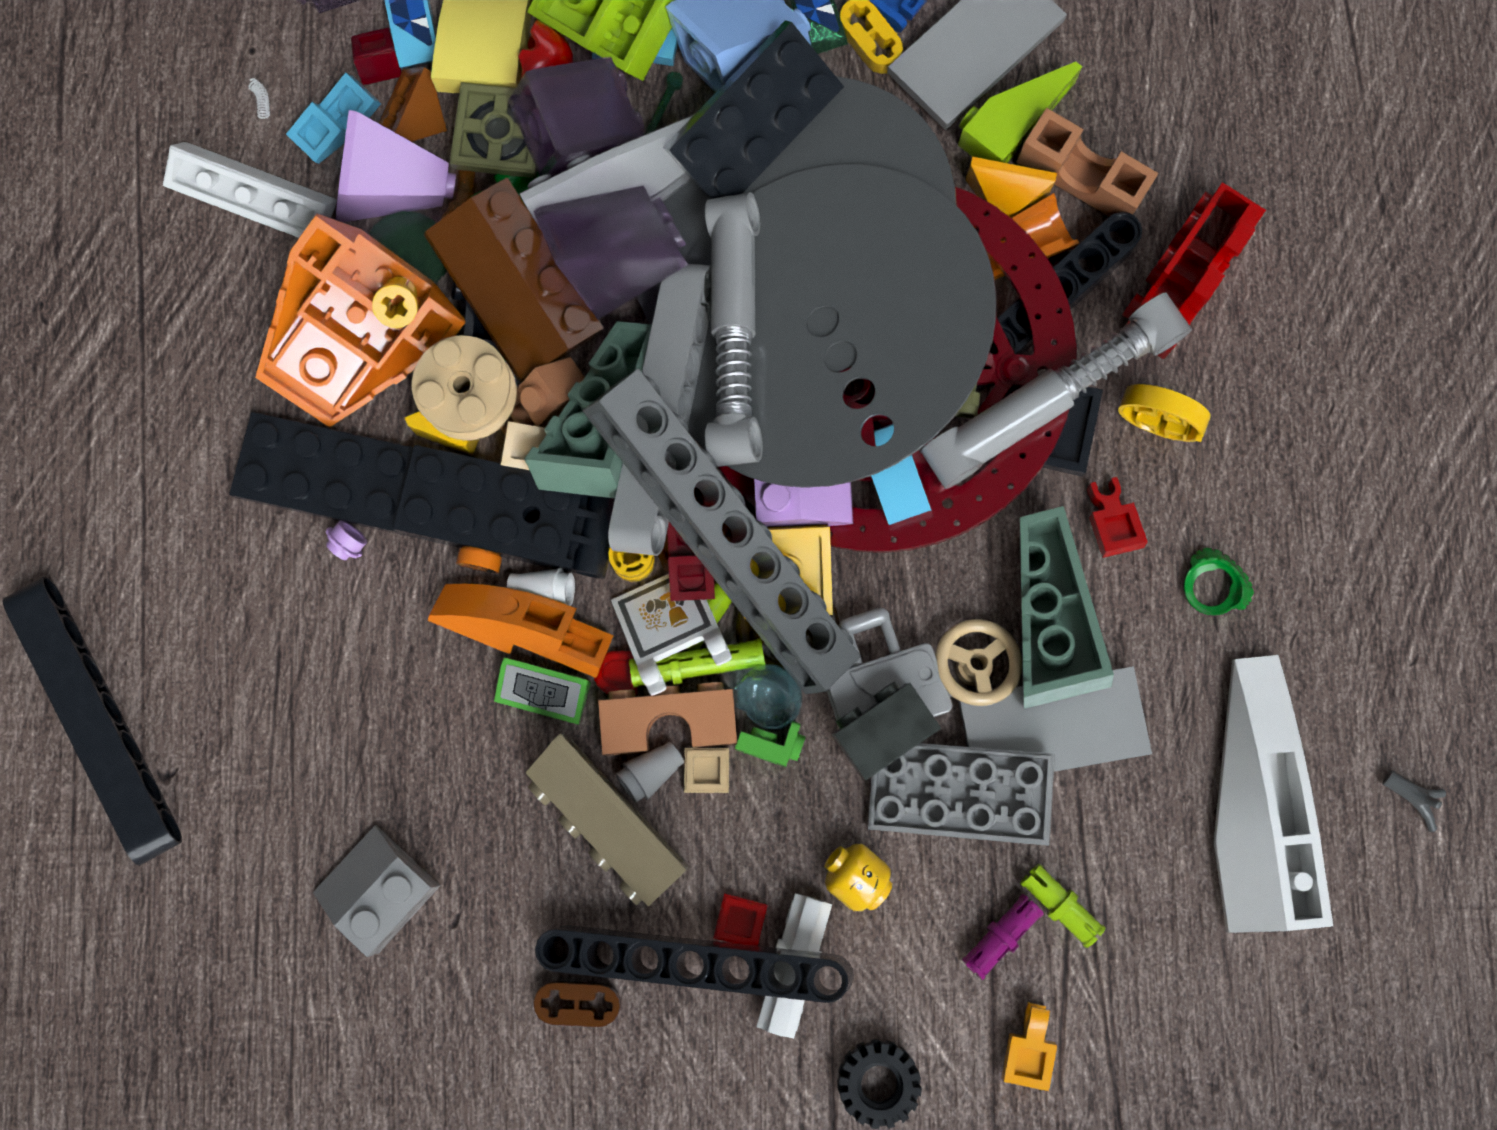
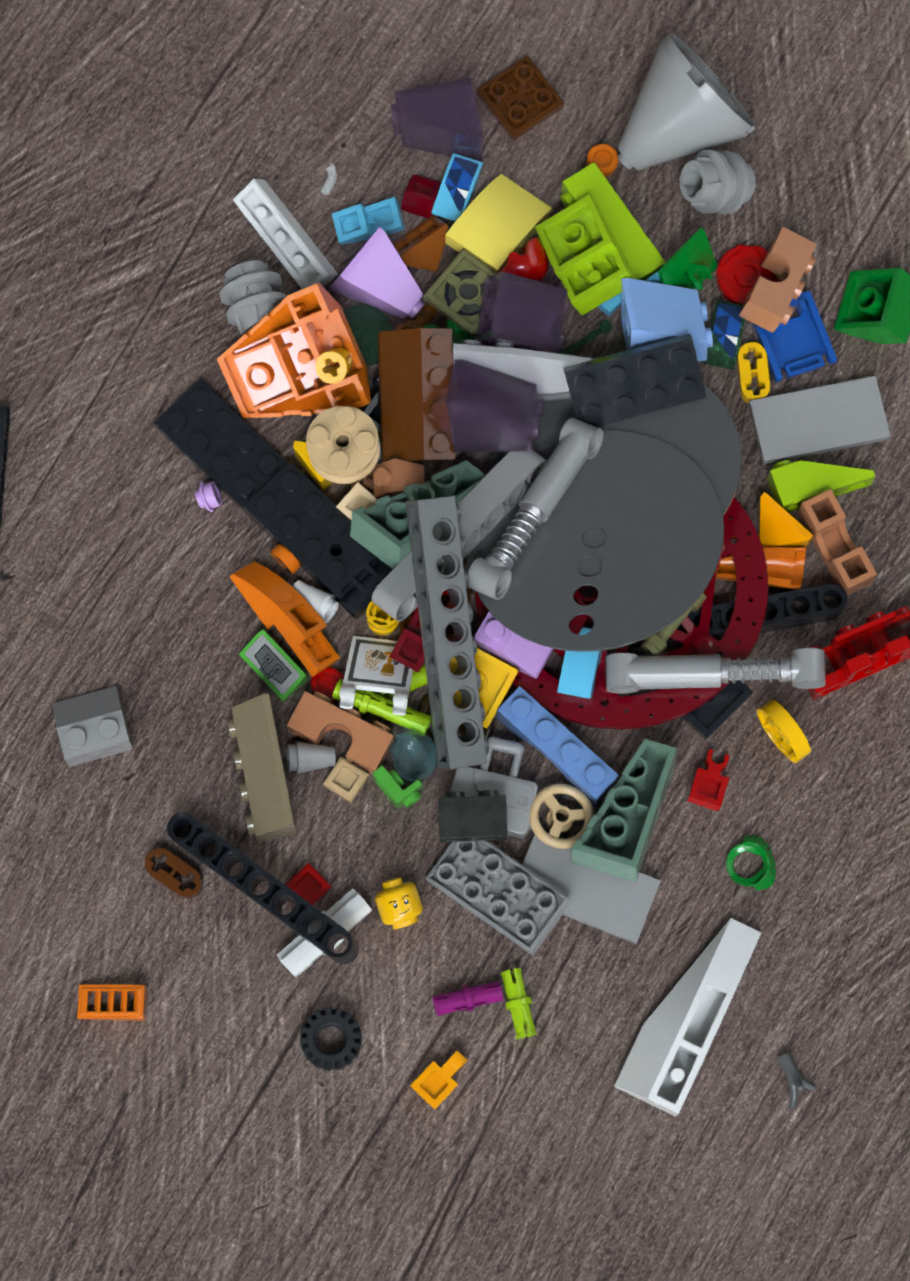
camera: 30 degrees right, 5 degrees down
(246, 277) = (251, 293): none -> light grey piece
(924, 583) = (551, 738): none -> medium blue arch

